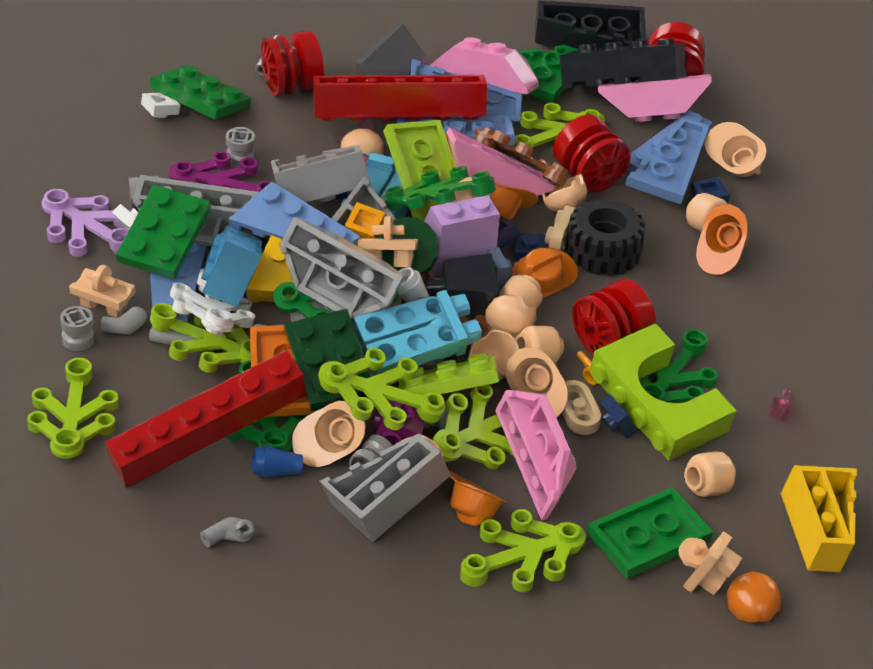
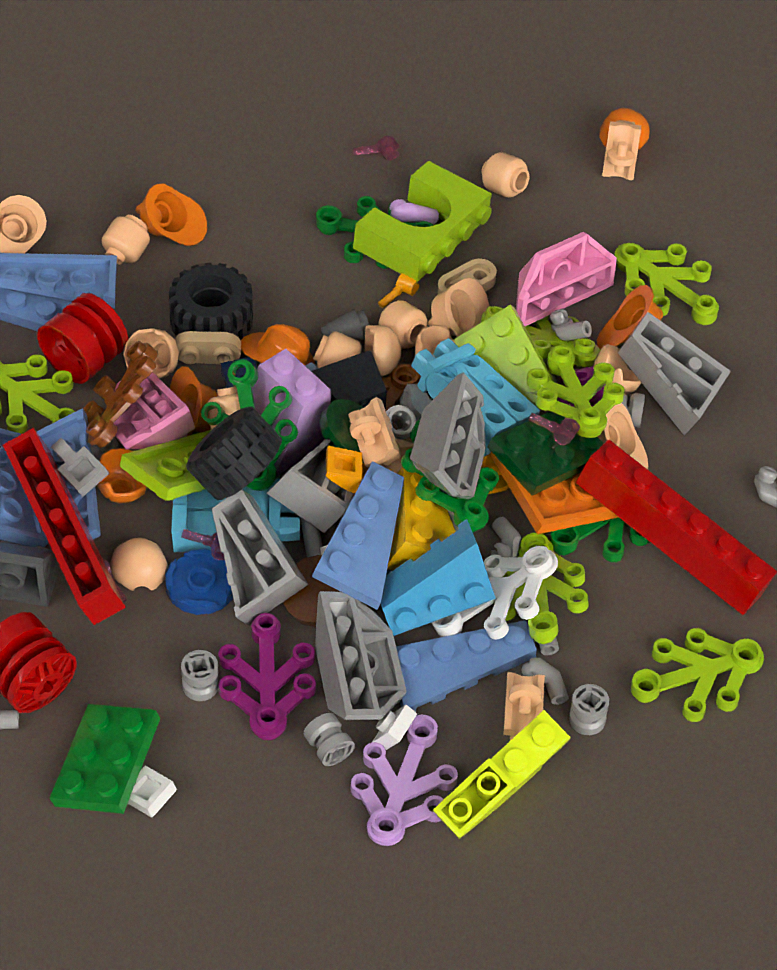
camera: 110 degrees left, 10 degrees up
(49, 257) = (501, 775): none -> neon yellow slope
(163, 231) = (418, 667): green plate -> none
(273, 462) = (673, 477): blue cone -> none
(336, 351) = (562, 432): none -> clear pink hand
(394, 149) = (234, 453): none -> black tyre
(452, 115) = (79, 467): none -> light grey plate
(478, 435) = (566, 328): none -> light grey arm
(552, 314) = (349, 324): none -> dark grey cone
(612, 314) = (349, 265): red wheel -> none
(616, 417) = (469, 249): dark blue plate -> none
(648, 532) = (594, 204): green plate -> none
(677, 386) = (412, 212): none -> lavender arm
(710, 186) = (82, 243): dark blue plate -> none
(822, 514) = (519, 94): yellow wedge -> none

